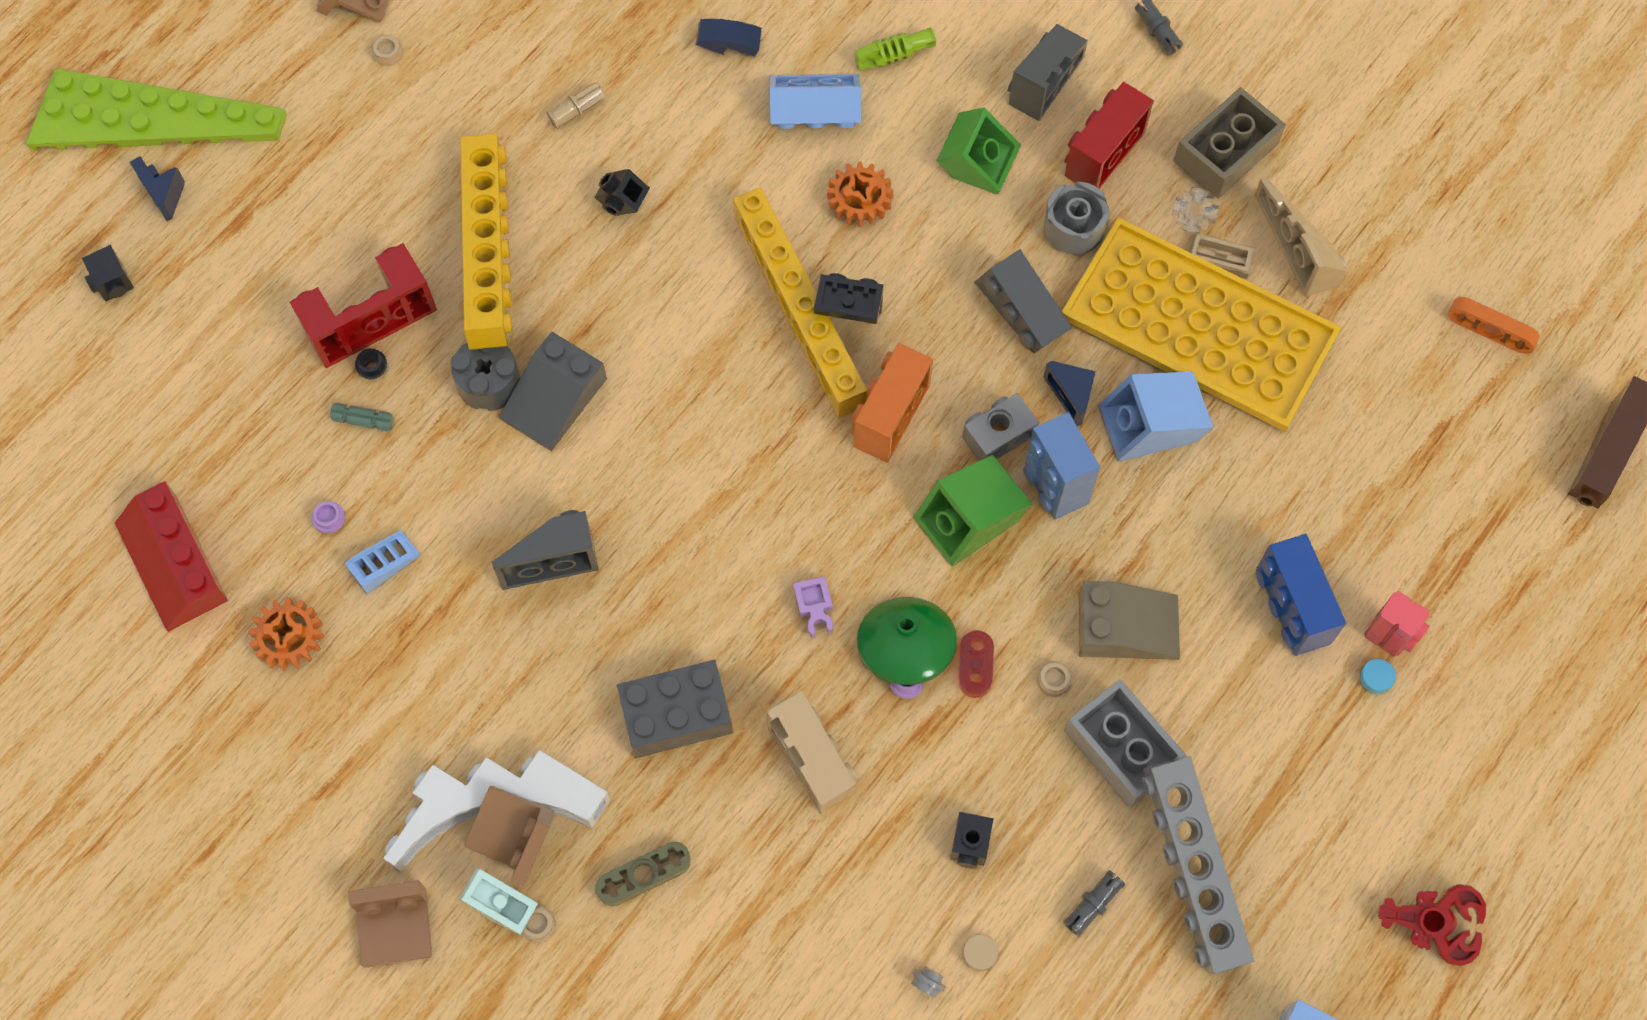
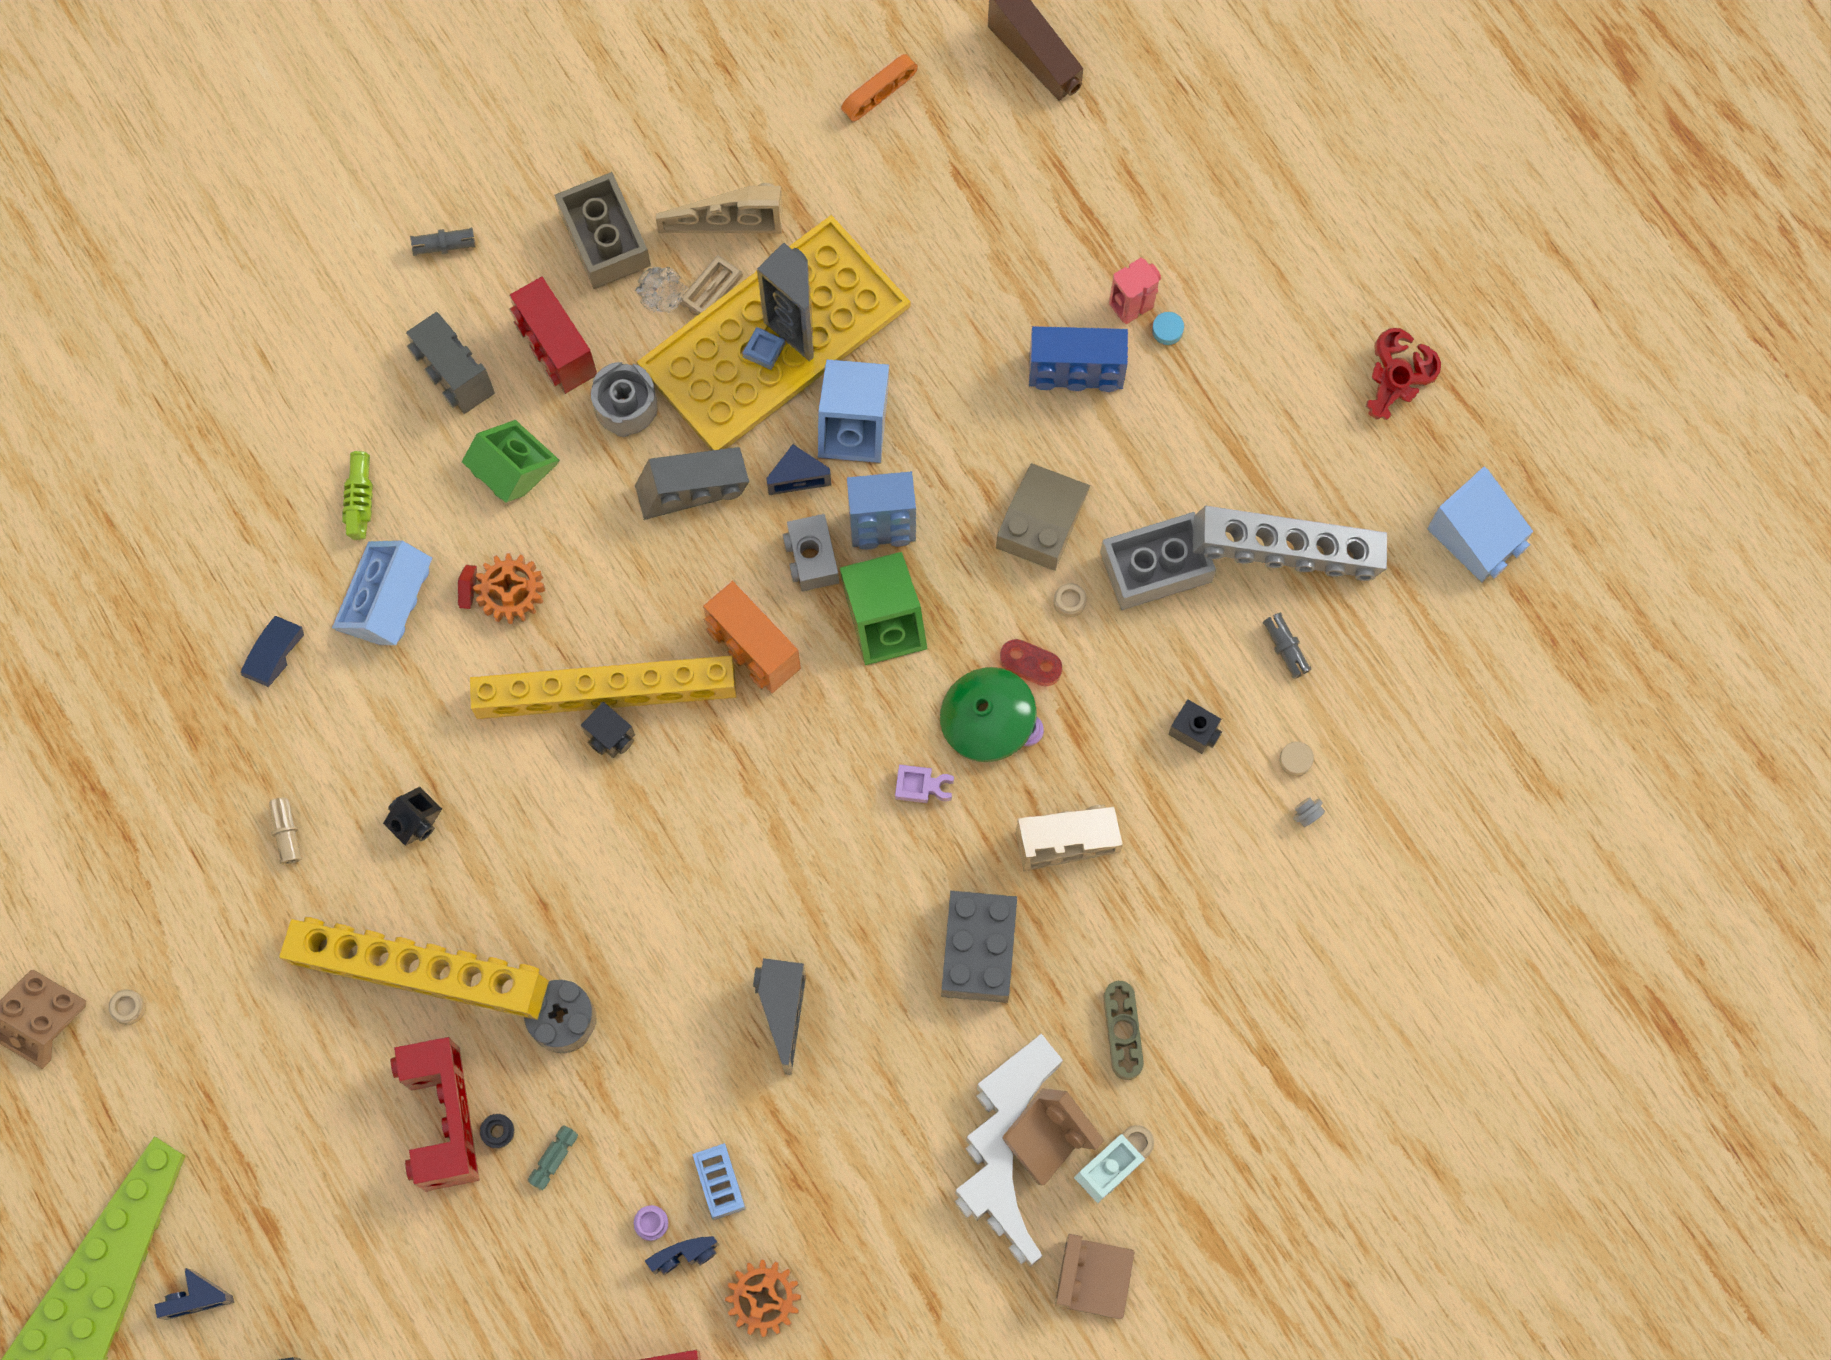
camera: 70 degrees left, 5 degrees up
(308, 555) = (694, 1250): none -> dark blue slope
(553, 391) = (604, 957): dark grey slope -> none
(760, 319) = (608, 731): none -> black brick
(848, 156) = (465, 586): none -> red tile
(849, 298) = (633, 636): black bracket -> none
(1179, 315) = (763, 348): none -> medium blue tile
(1229, 304) = (787, 298): none -> dark grey slope

